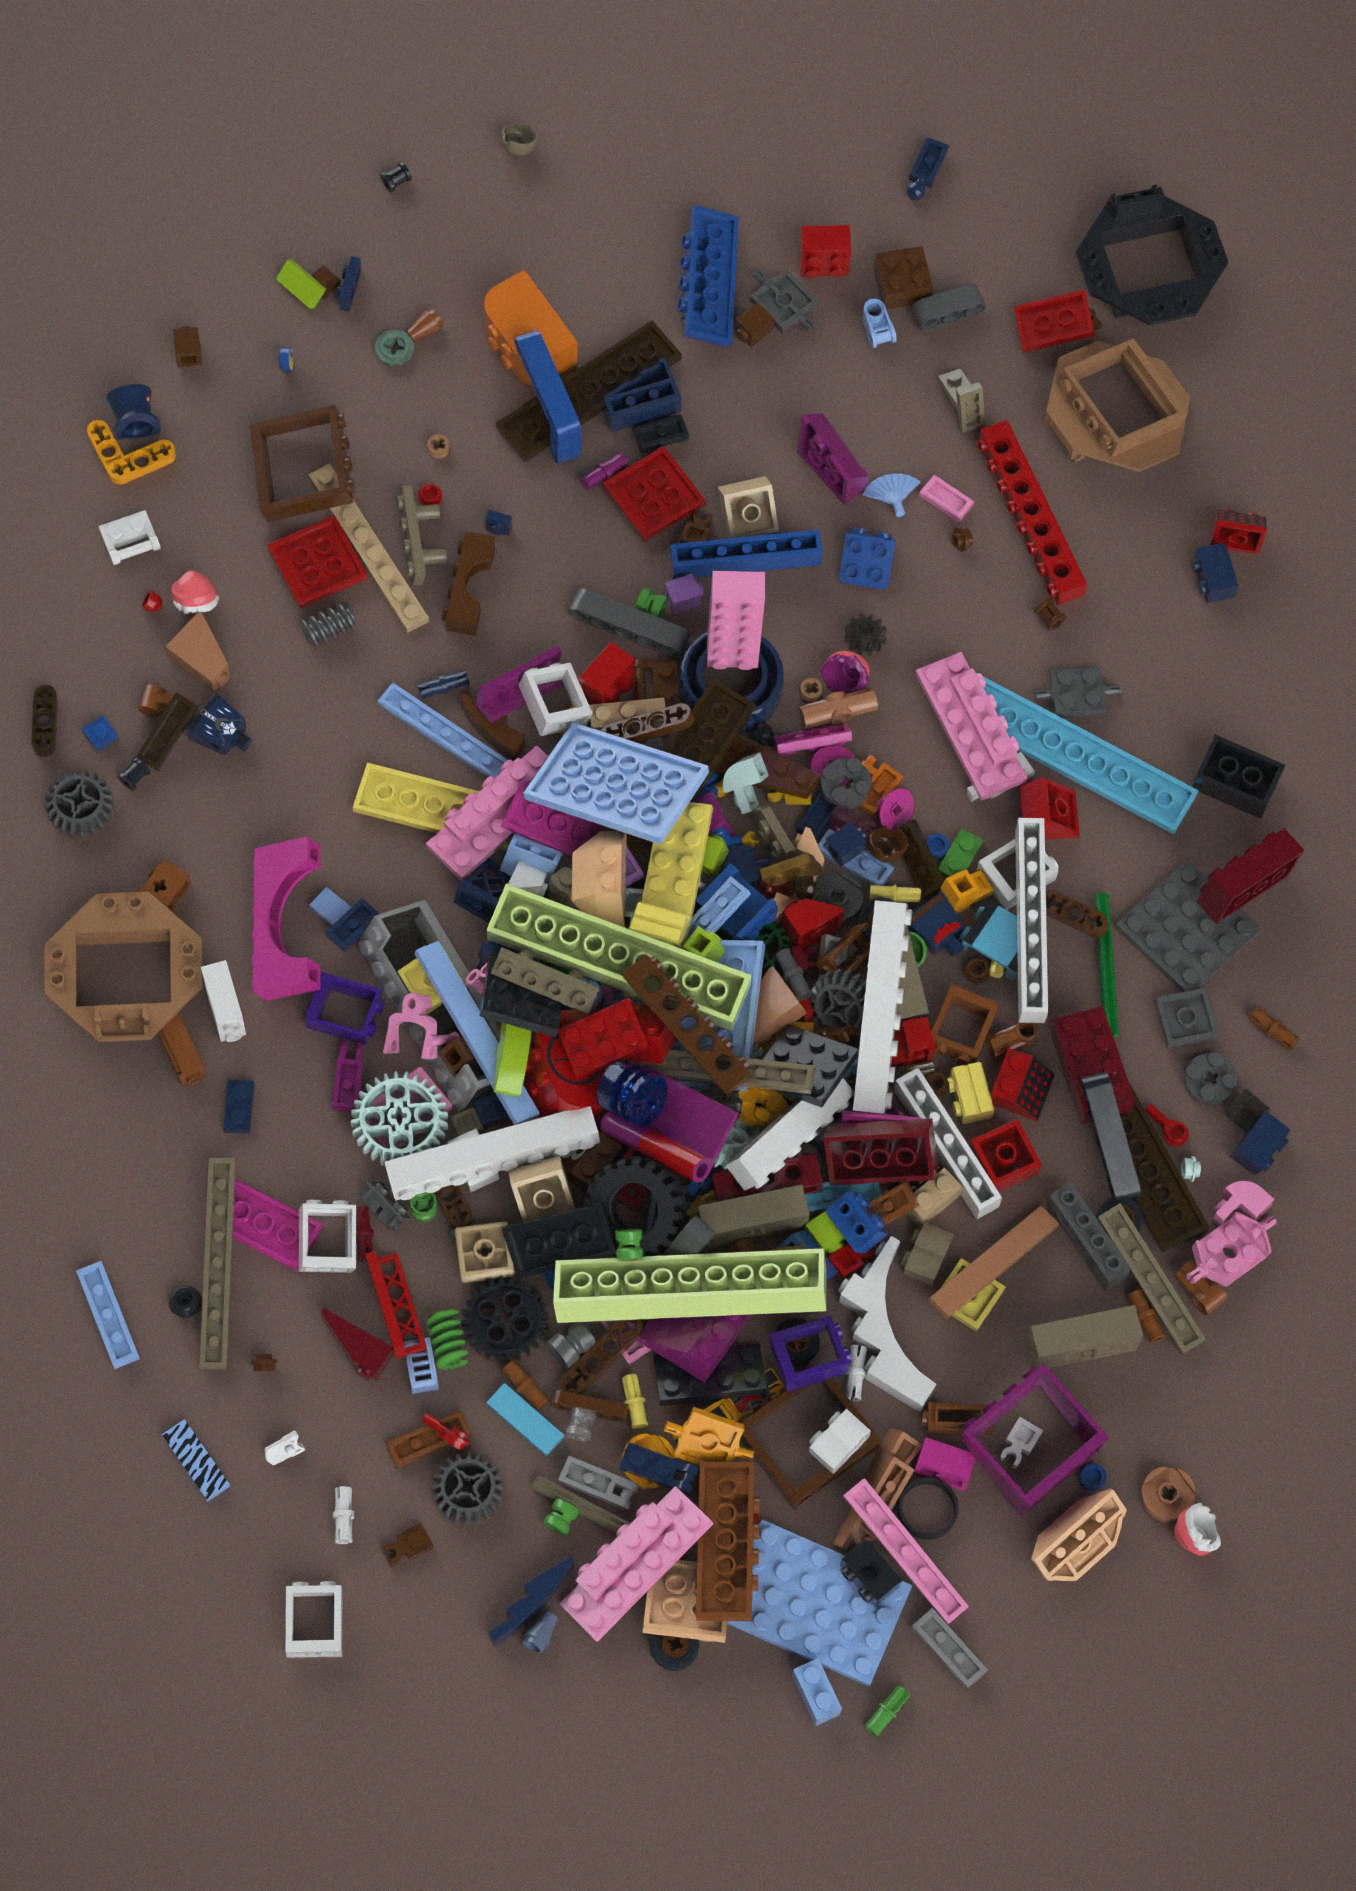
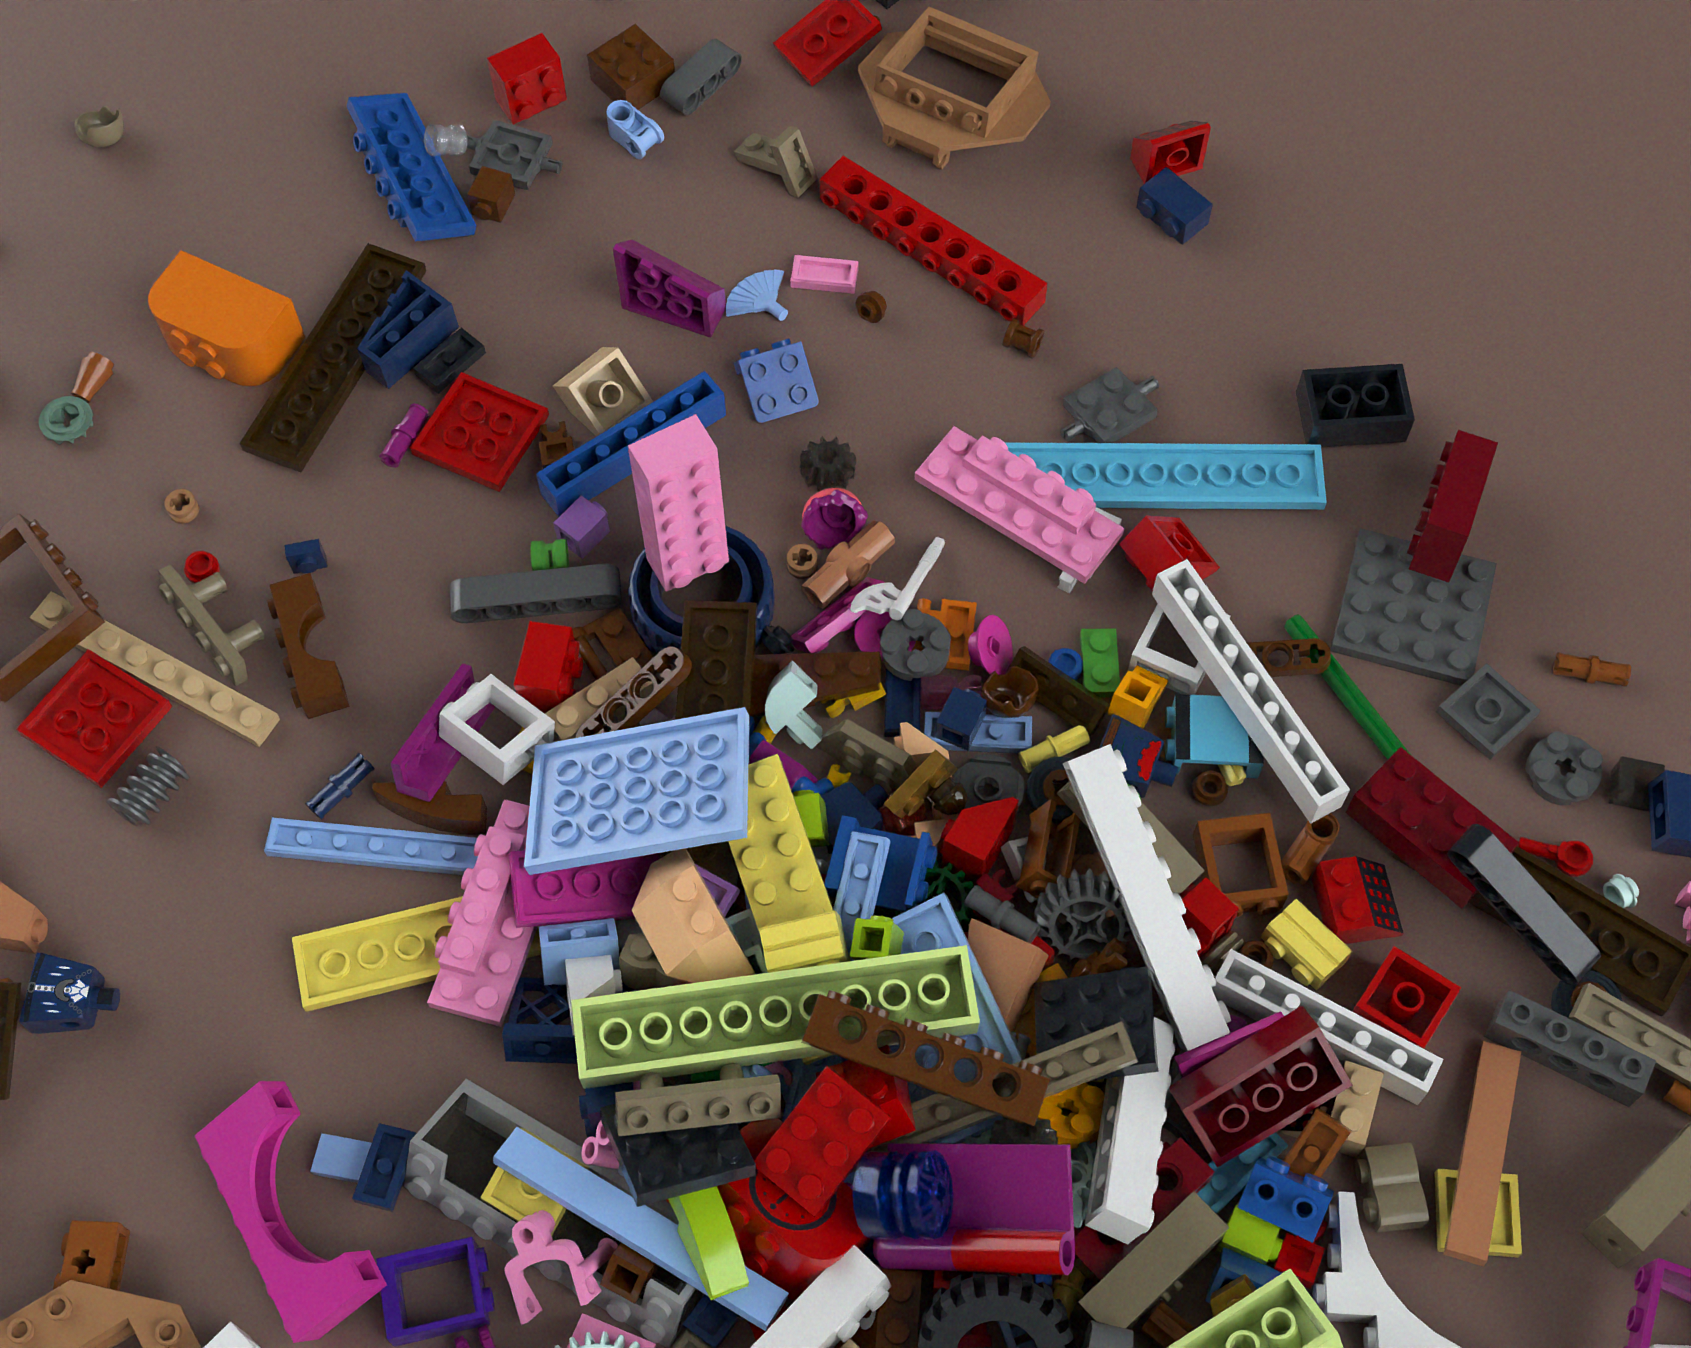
camera: 25 degrees left, 5 degrees down
(551, 393) = (296, 372): blue beam -> none
(743, 269) = (444, 140): none -> clear wheel
(857, 748) = (899, 599): none -> white piece

